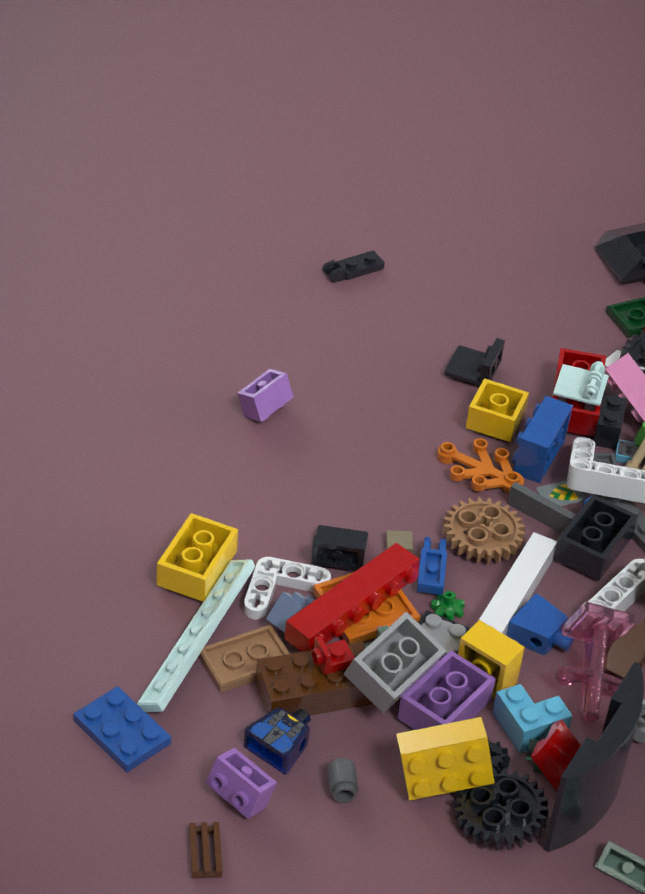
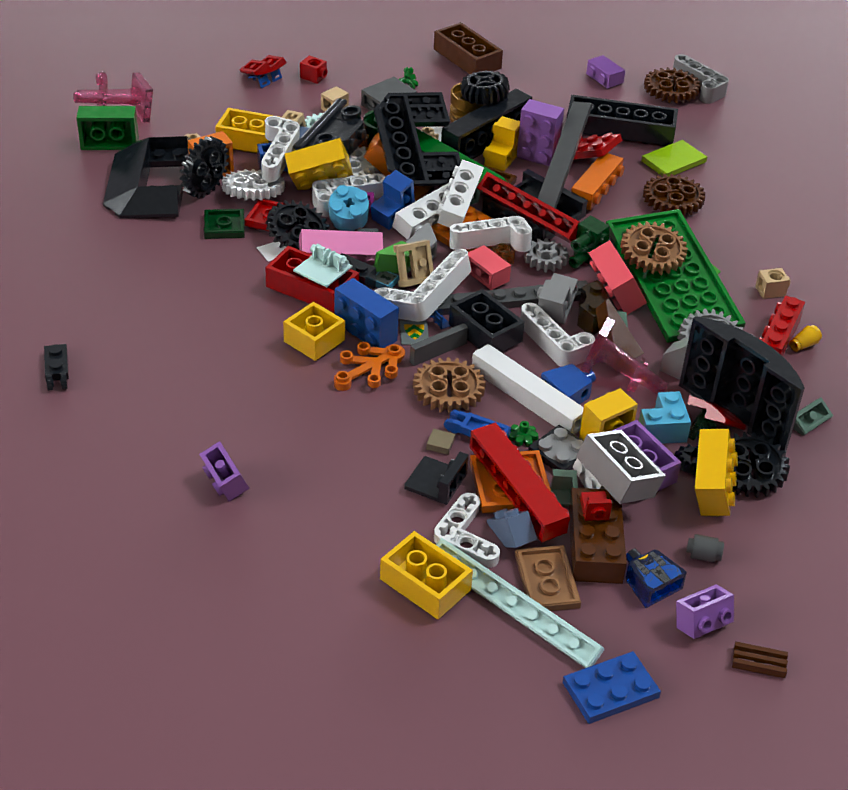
camera: 70 degrees left, 0 degrees up
(475, 365) = (245, 328): black bracket -> none

